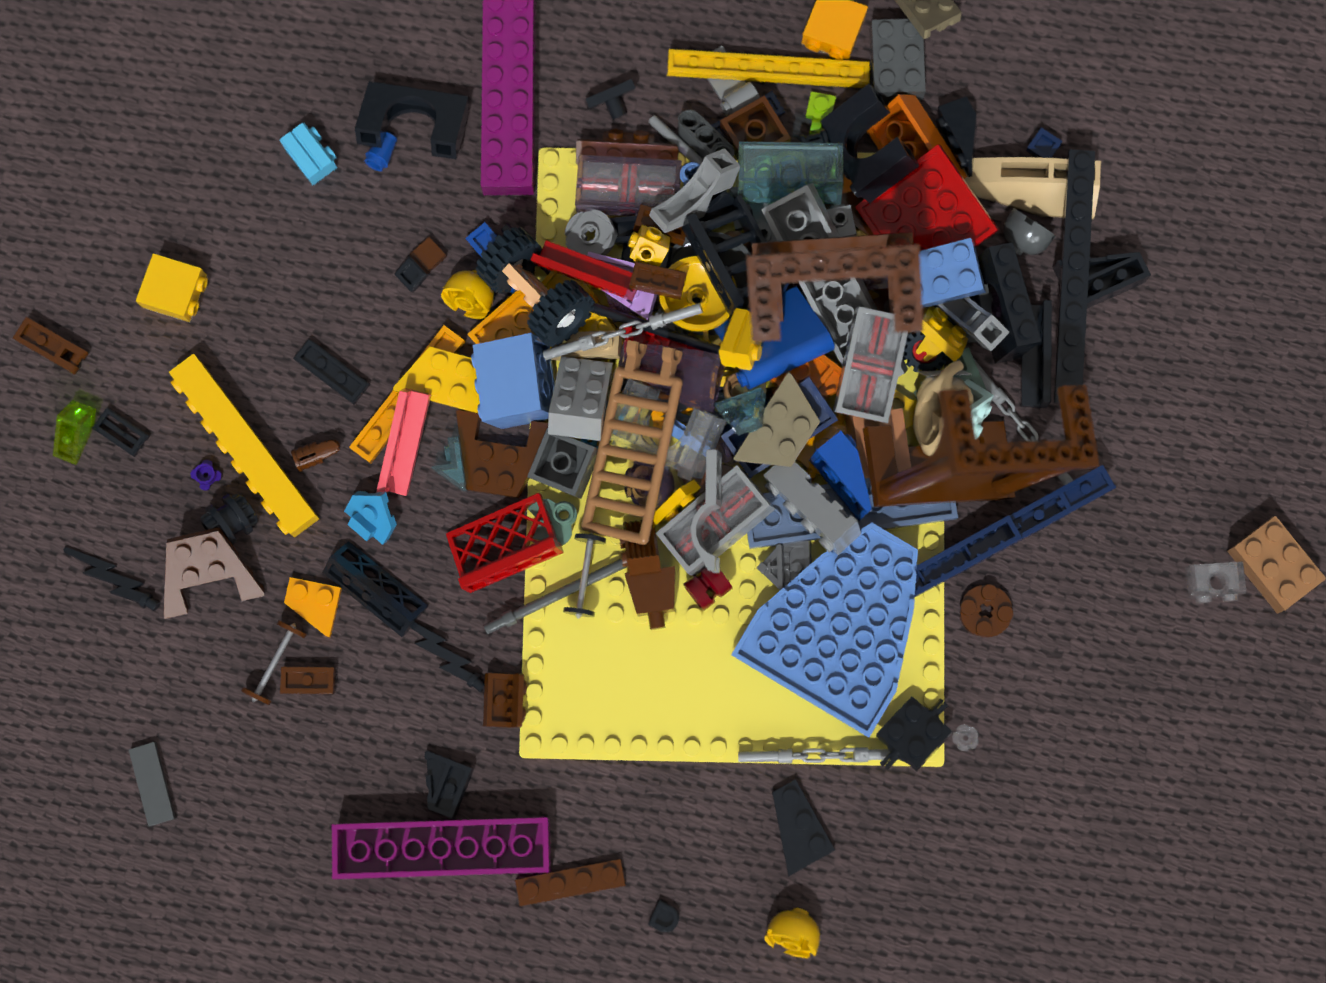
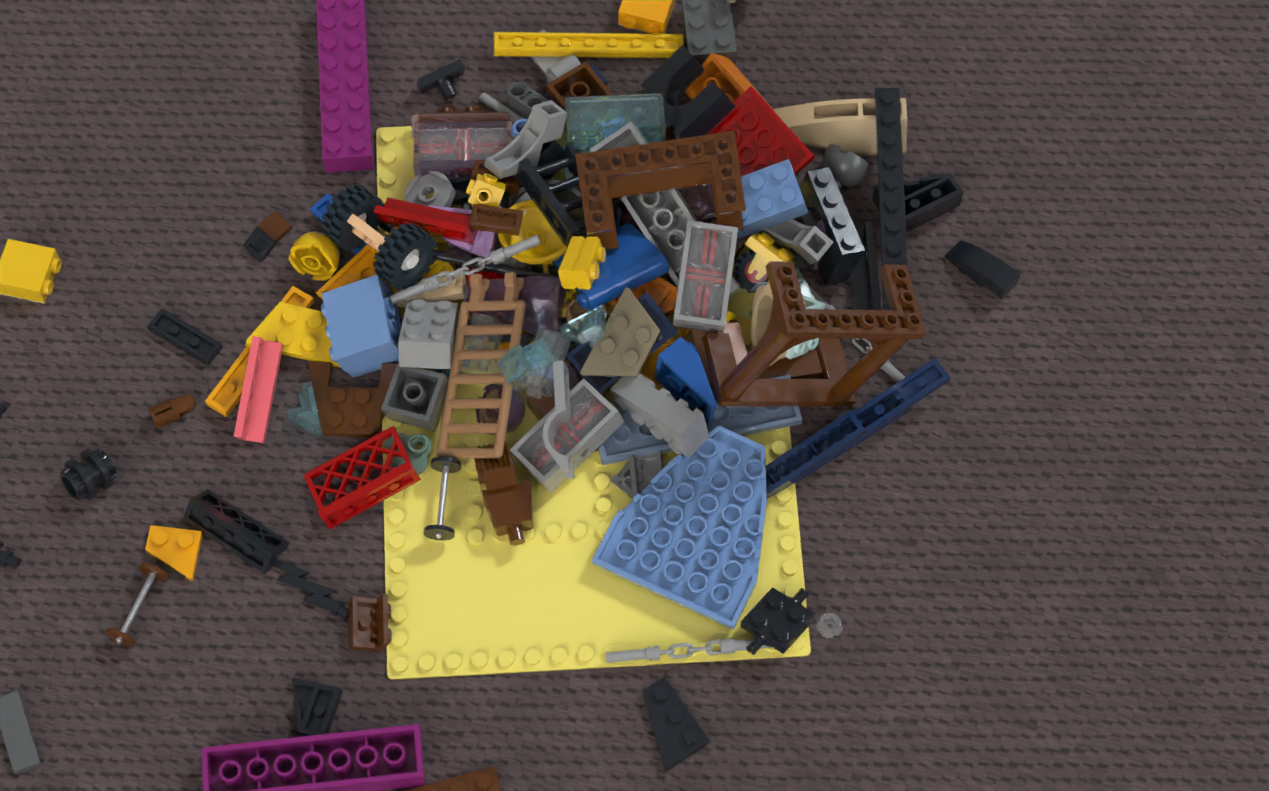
camera: 10 degrees left, 15 degrees down
(198, 474) = (60, 432): dark purple plate -> none
(200, 560) = (63, 510): wing -> none
(243, 445) = (101, 407): yellow brick -> none
(307, 680) = (171, 620): reddish brown plate -> none
(308, 153) = (155, 145): medium azure brick -> none
(371, 516) = (229, 461): dark azure plate -> none
(379, 158) = (224, 142): blue cone -> none
(387, 101) = (230, 95): black arch -> none
(510, 617) = (371, 544): dark grey bar -> none
(678, 446) = (525, 361): none -> clear light blue slope
(679, 499) = (527, 420): yellow plate -> none
(707, 587) = (570, 492): dark red wheel -> none
(819, 107) = (637, 75): lime plate -> none
(959, 124) = (772, 82): black slope -> none
(984, 626) = (840, 493): reddish brown plate -> none
(1044, 144) = (853, 90): dark blue plate -> none
(1161, 357) = (983, 268): none -> black slope
(1229, 574) = (1067, 453): clear brick -> none
(1276, 564) = (1113, 442): medium nougat brick -> none

